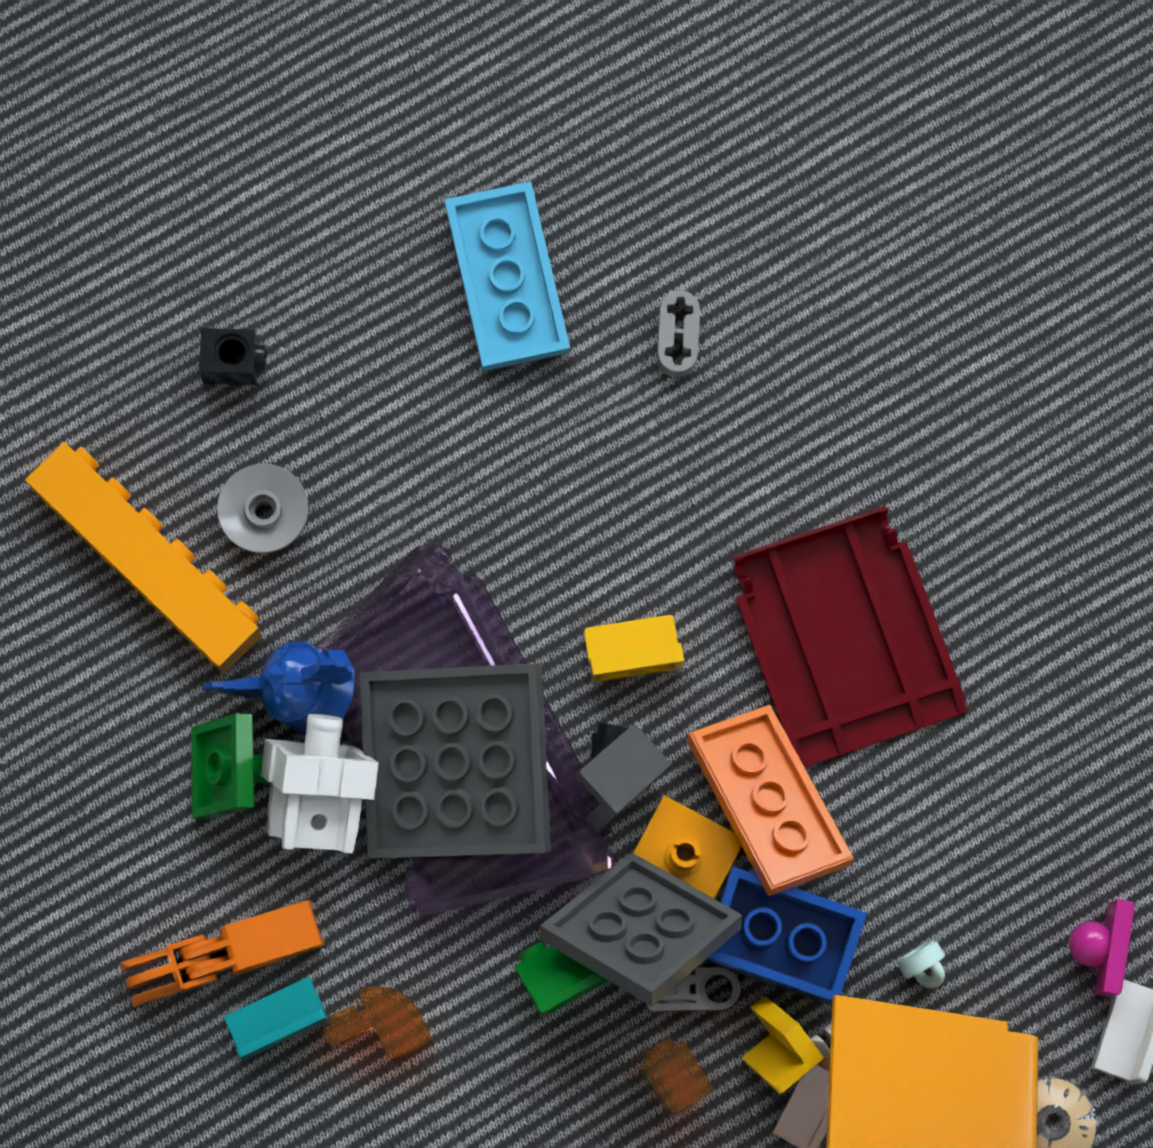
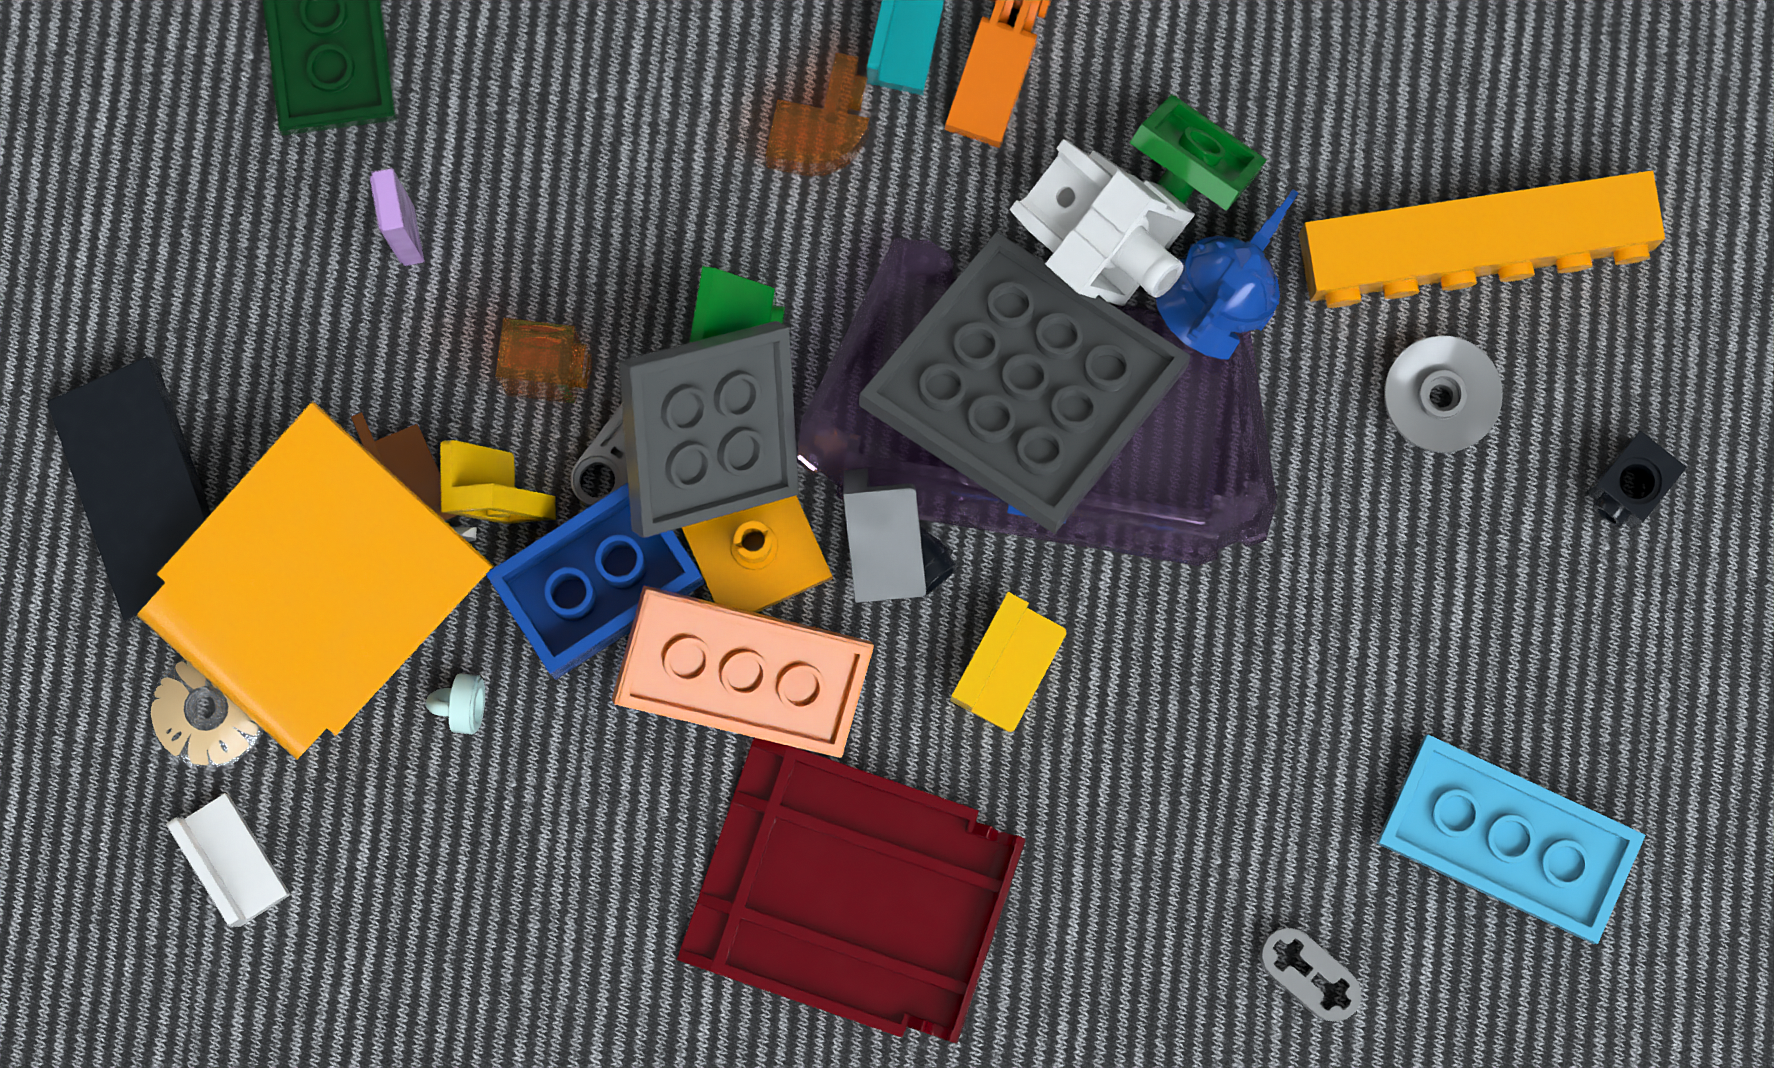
camera: 130 degrees right, 5 degrees up
(1105, 946) = (331, 900): dark pink tile -> none

